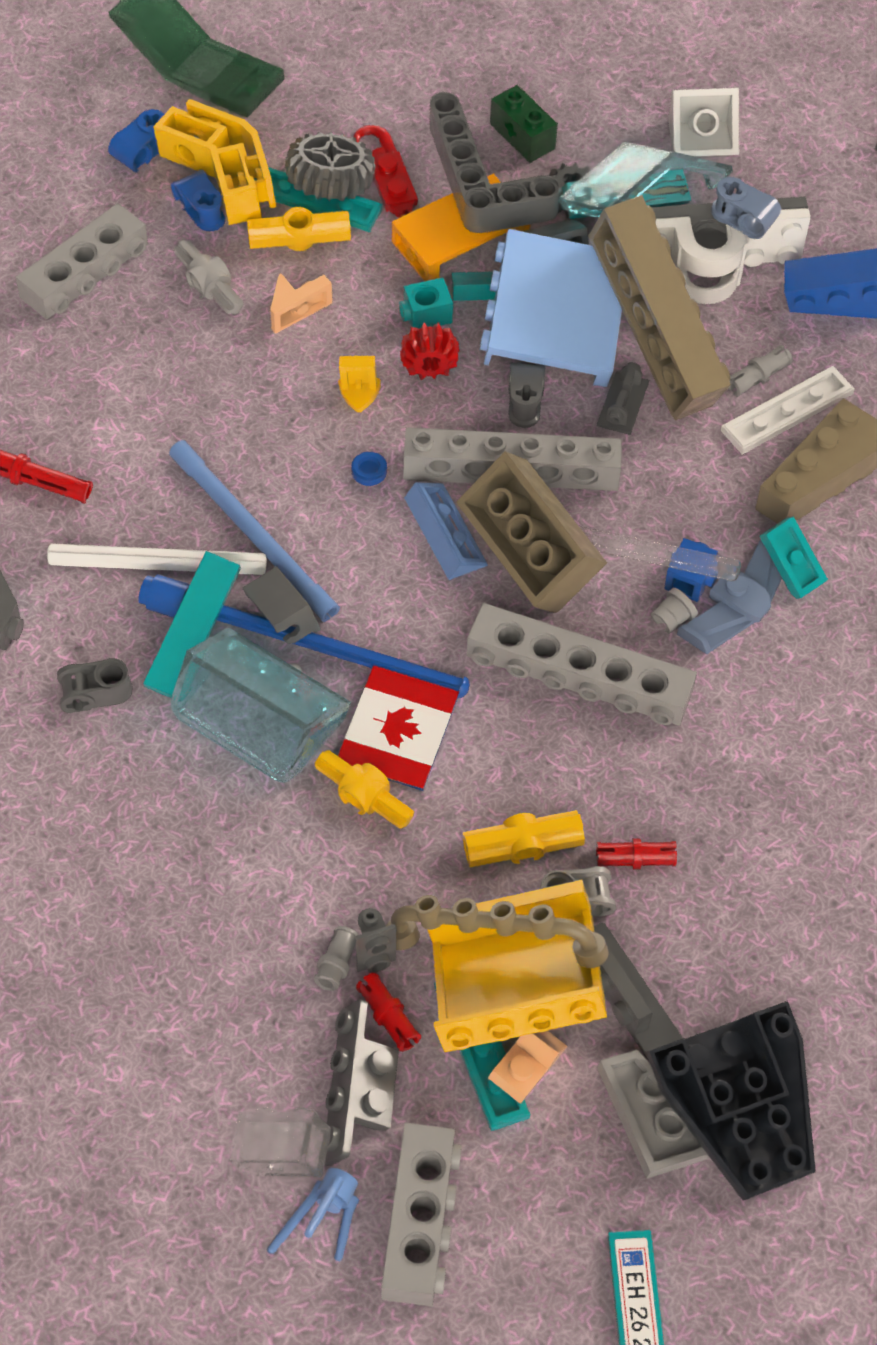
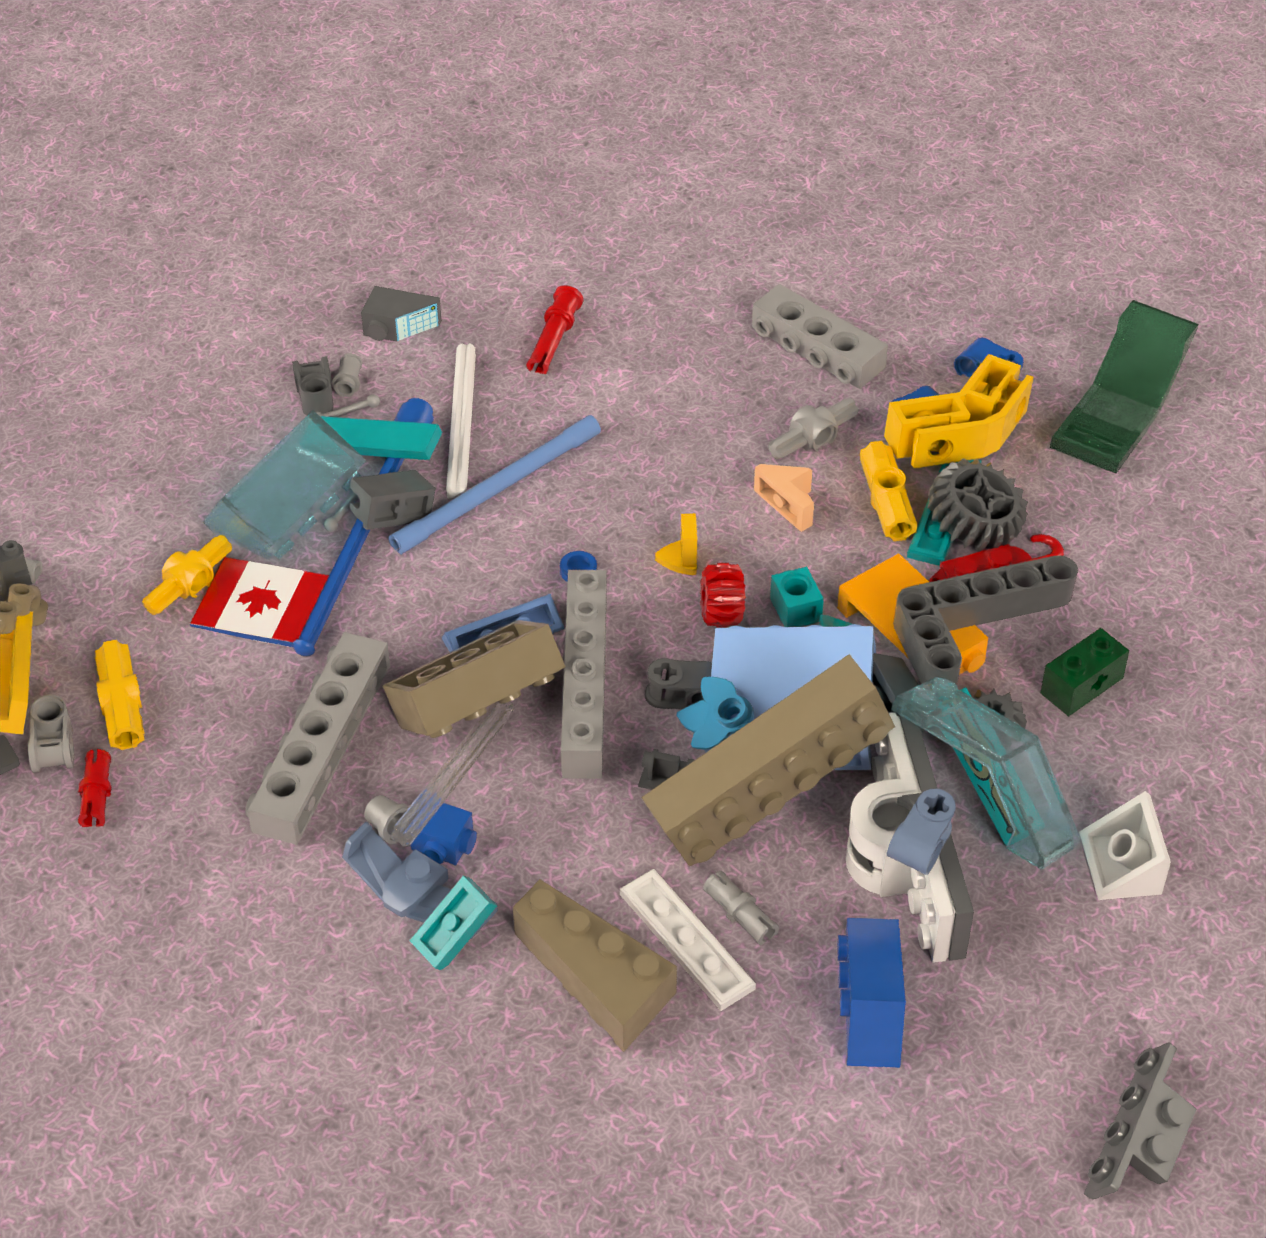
camera: 90 degrees right, 10 degrees down
(76, 655) = (346, 380): none -> light grey pin
(116, 639) = (372, 401): none -> light grey hinge
(582, 359) = (711, 716): none -> dark azure plate

